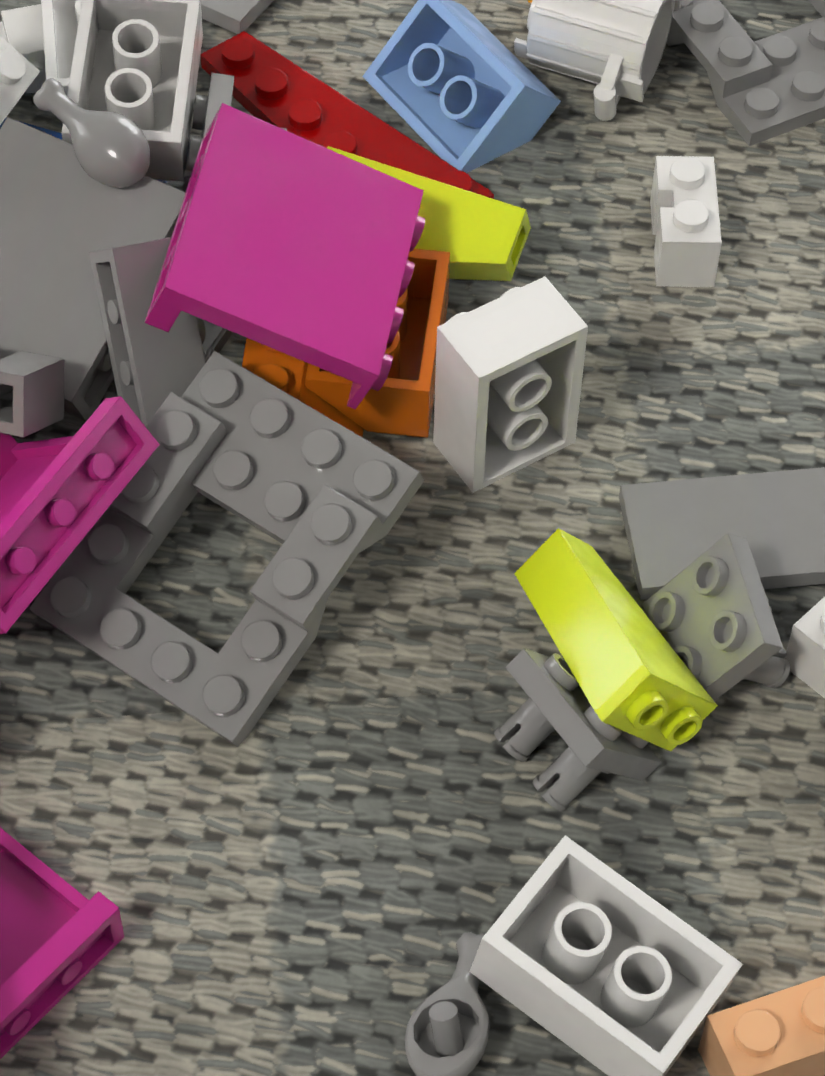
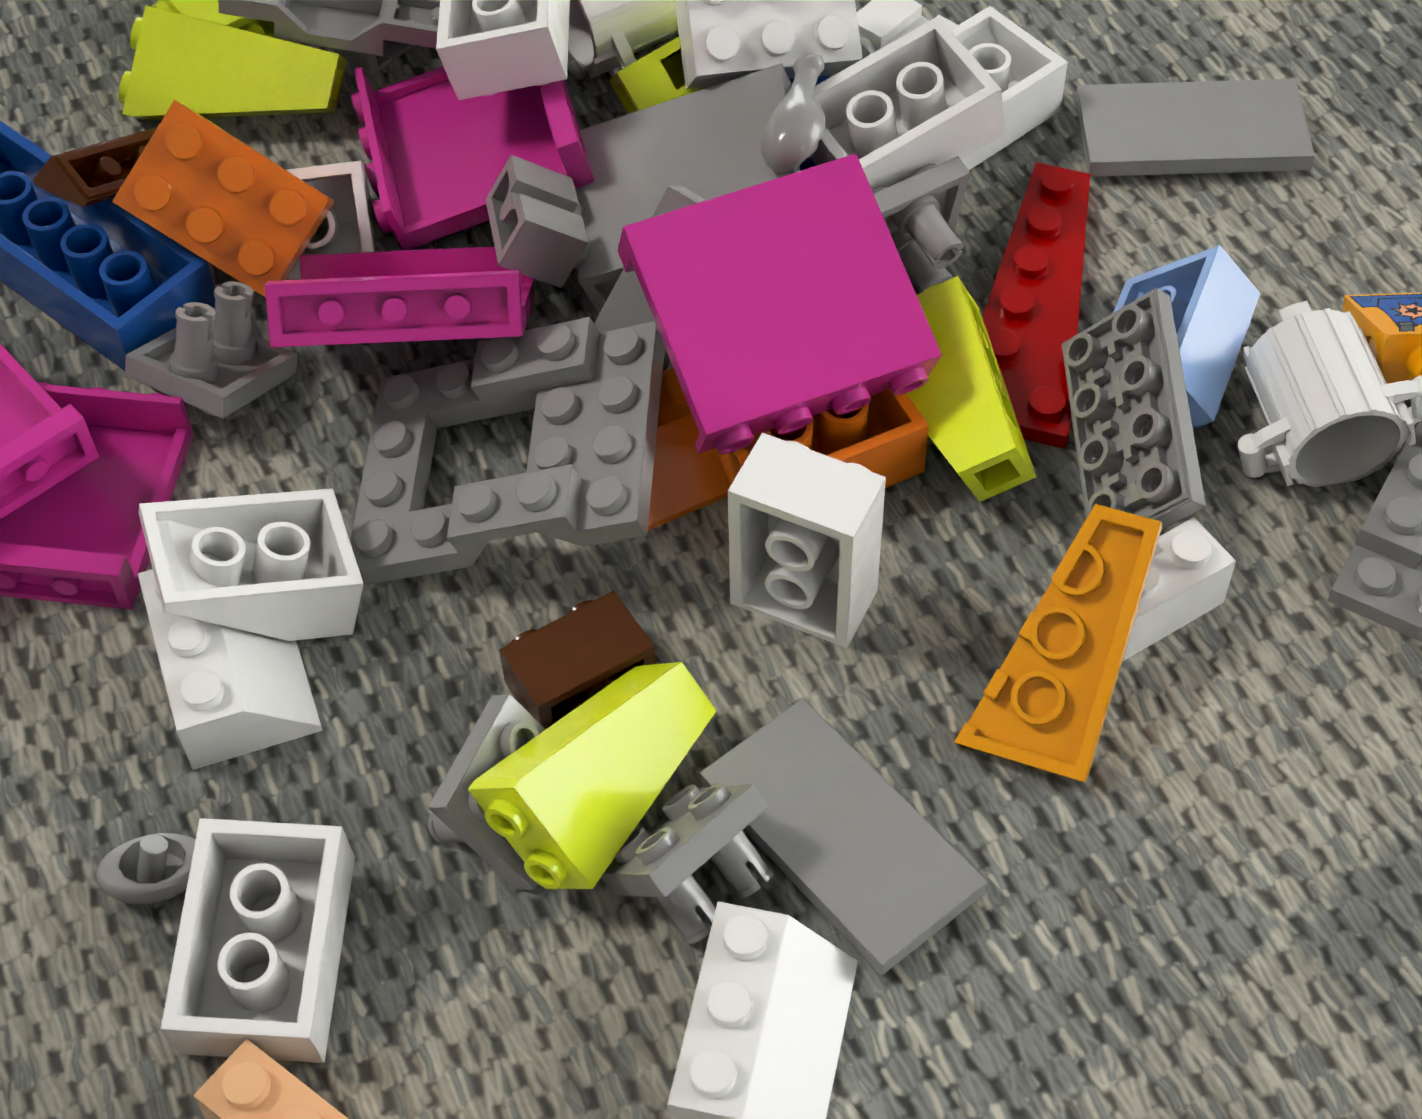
camera: 60 degrees right, 0 degrees up
(206, 775) = (256, 562): none -> white slope
(258, 881) = (228, 684): none -> white slope
(471, 616) = (574, 657): none -> reddish brown brick
(535, 141) = (1134, 414): none -> light grey tile
(721, 300) = (1062, 670): none -> light orange wing

